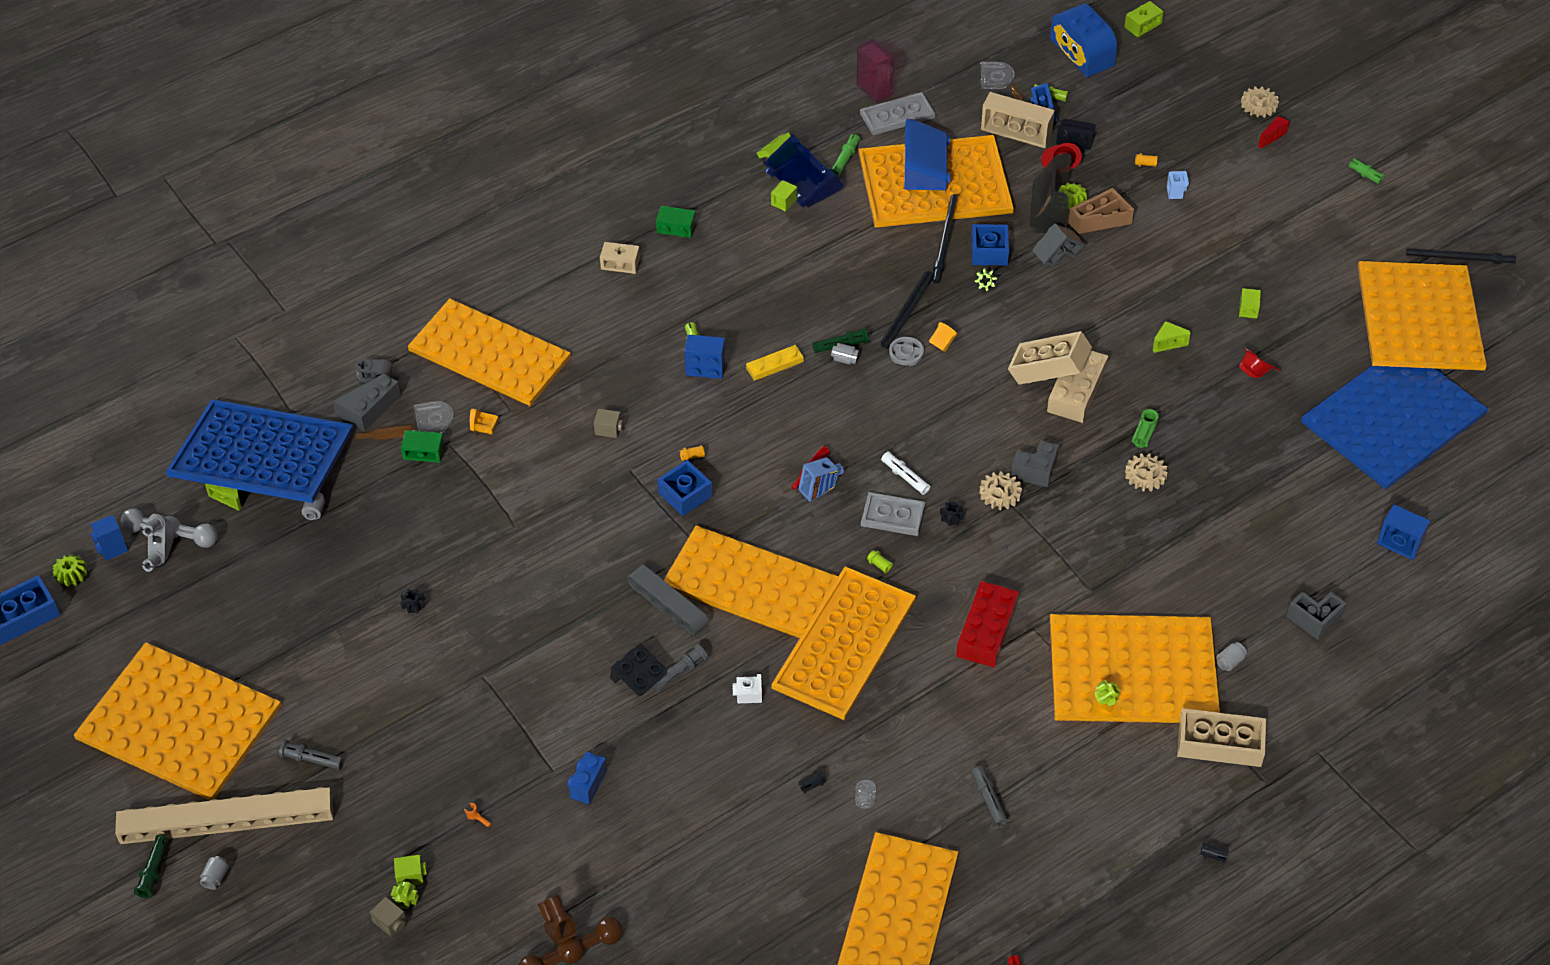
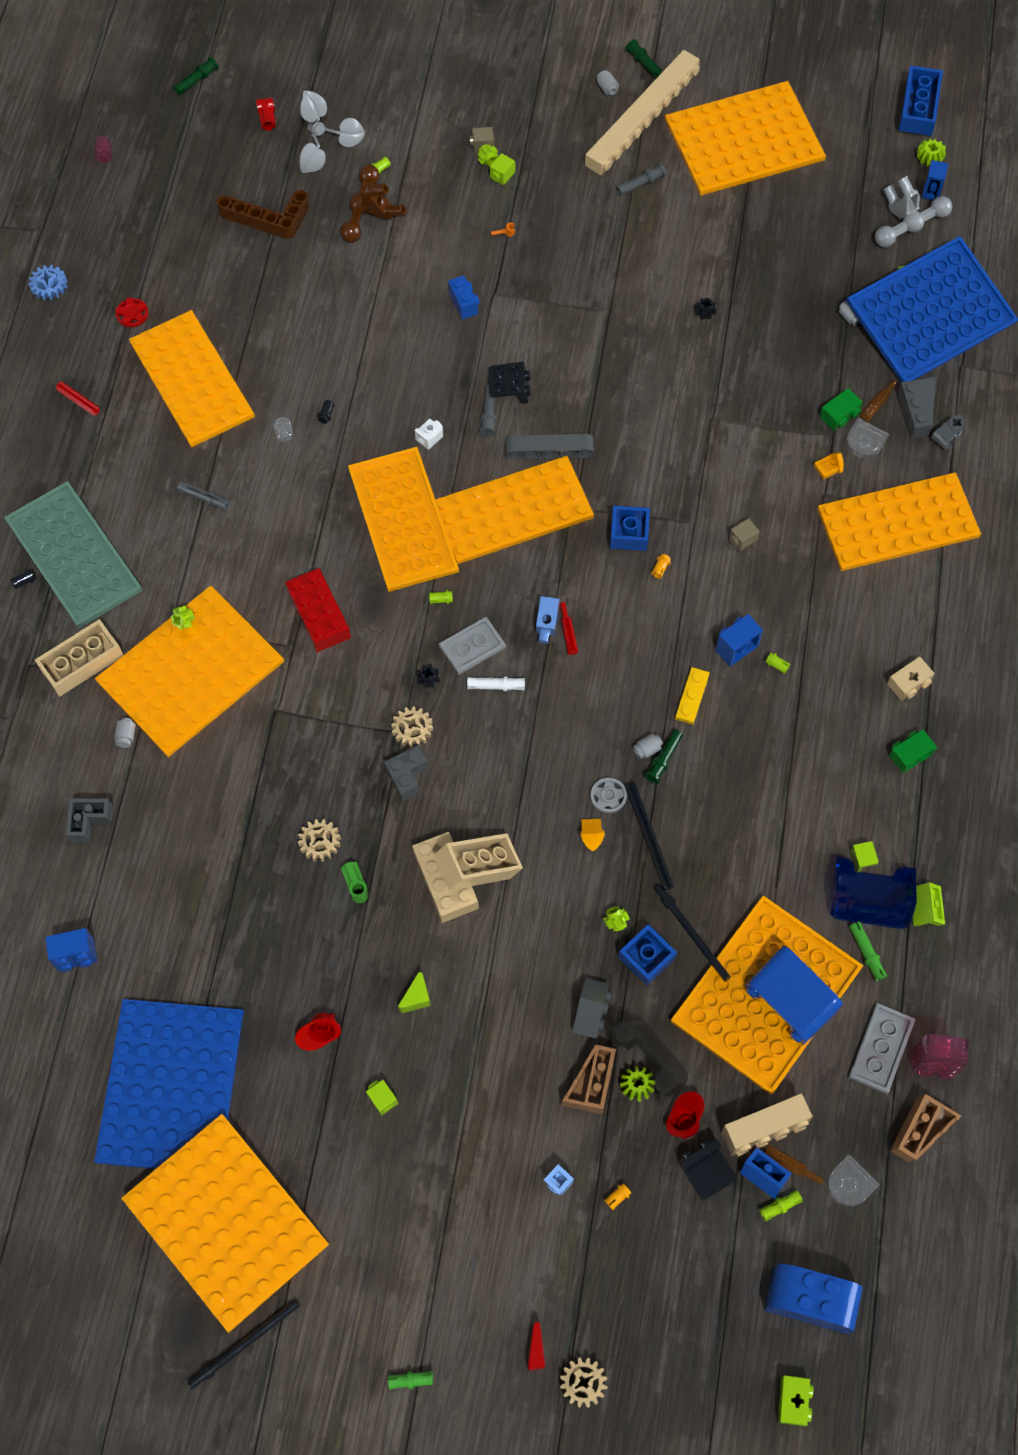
camera: 135 degrees right, 15 degrees up
(926, 61) = (923, 1126): none -> medium nougat wedge
(1150, 840) = (73, 554): none -> sand green plate

